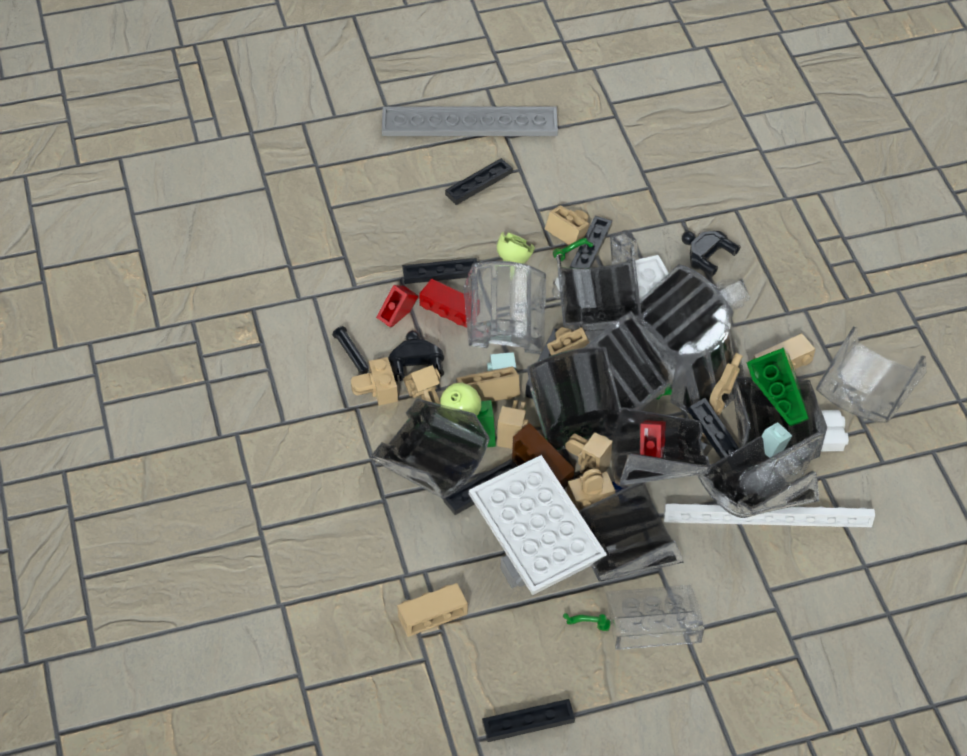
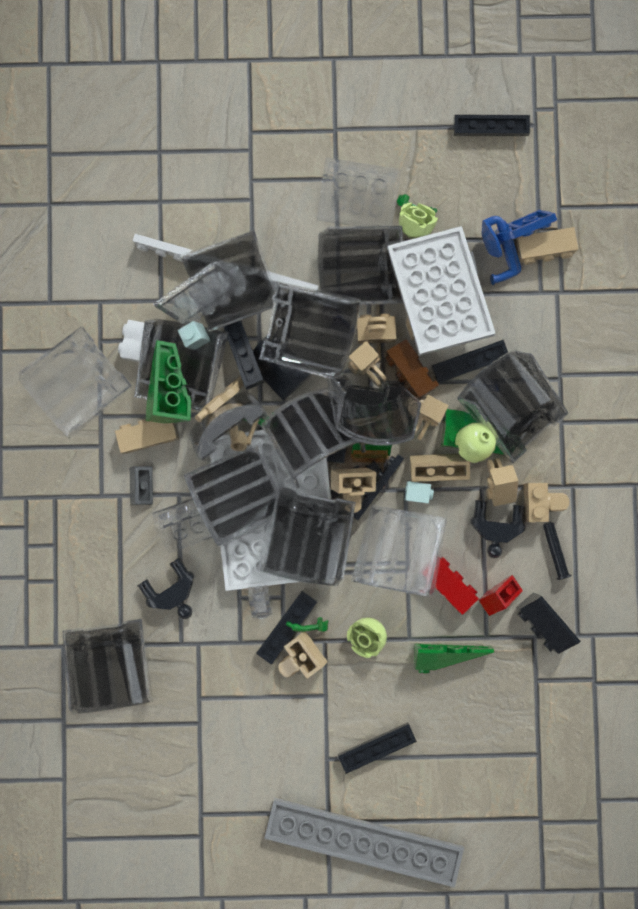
camera: 165 degrees left, 35 degrees up
(347, 292) = (547, 624): none -> black slope
(437, 270) = (447, 632): black plate -> none
(443, 249) = (439, 656): none -> green wedge
(470, 607) = (506, 233): none -> blue plate
(585, 605) = (417, 220): none -> yellowish green cylinder
(652, 438) = (312, 343): red slope -> none
(743, 186) = (106, 667): none -> clear smoke windscreen
(770, 322) = (141, 485): none -> dark grey slope

